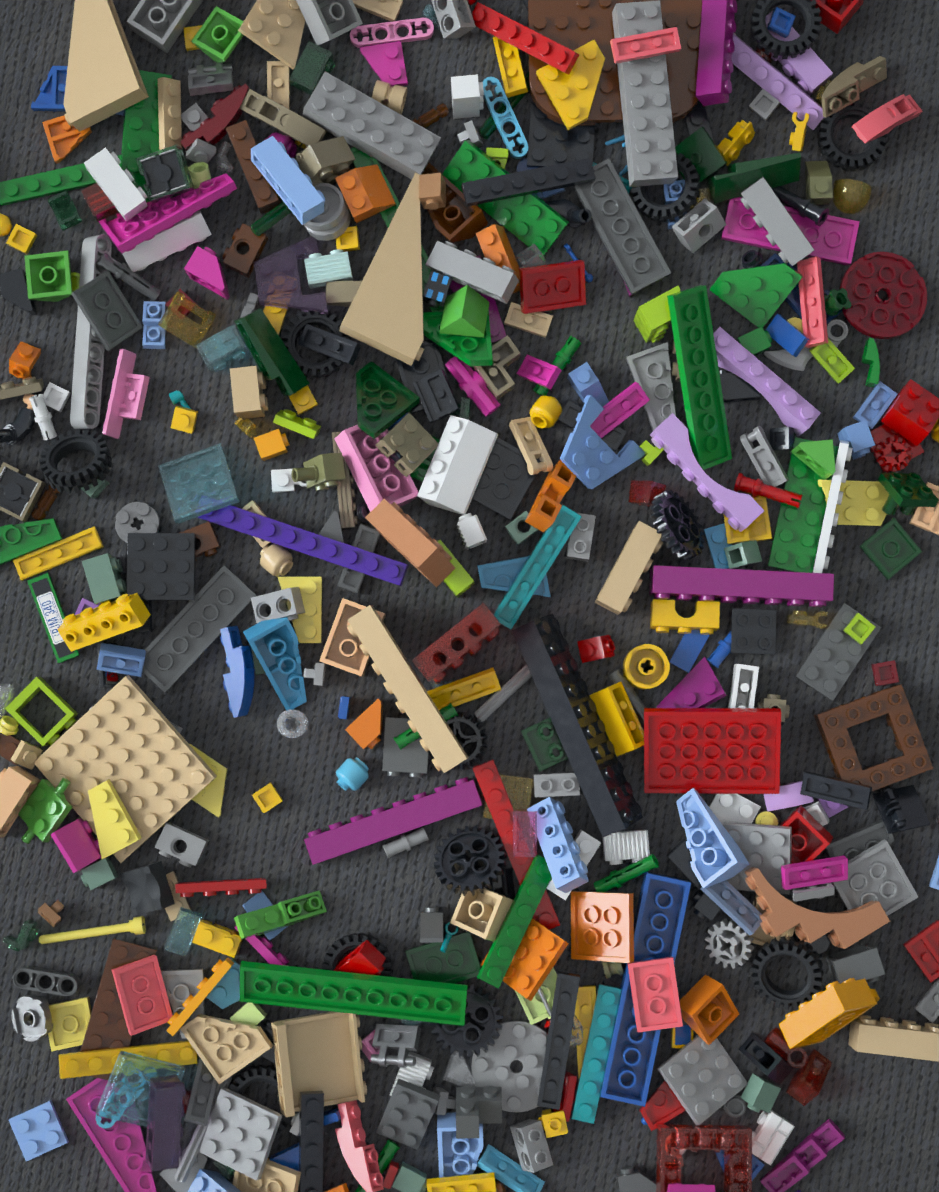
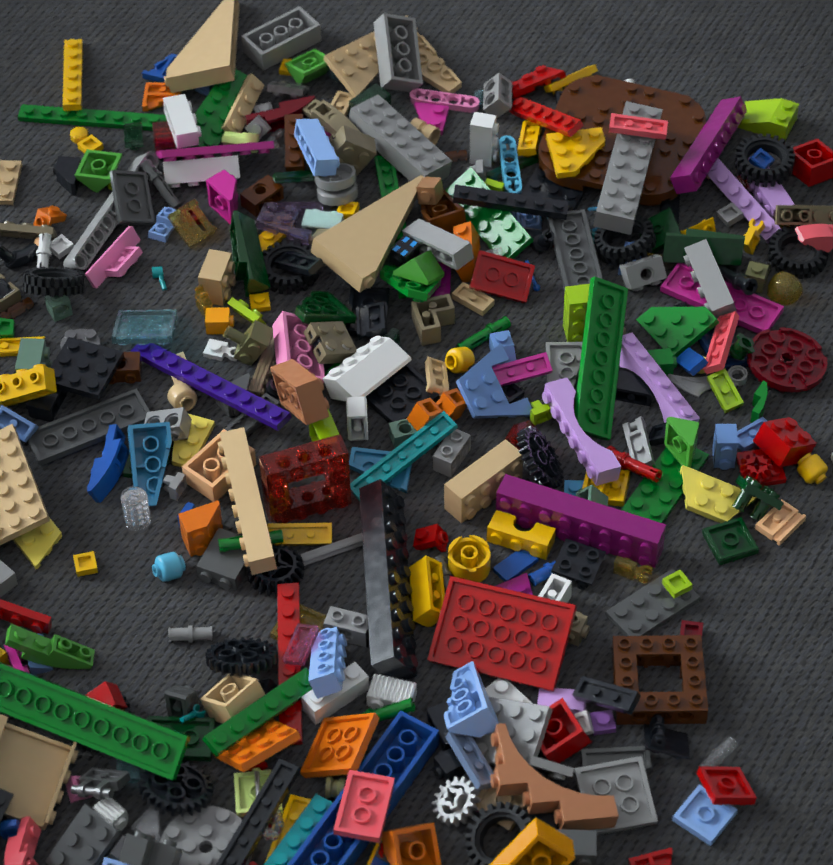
camera: 20 degrees right, 35 degrees down
(165, 173) = (222, 125): piece -> none
(184, 419) = (156, 287): yellow plate -> none
(222, 348) = (201, 246): clear light blue brick -> none
(365, 192) = (374, 179): orange slope -> none
(393, 821) = (181, 611): magenta brick -> none
(473, 385) = (407, 327): dark pink piece -> none
(539, 372) = (466, 330): dark pink plate -> none
(544, 744) = (352, 591): dark green plate -> none
(814, 872) = (560, 752): dark pink plate -> none
(835, 497) = (686, 477): white plate -> none

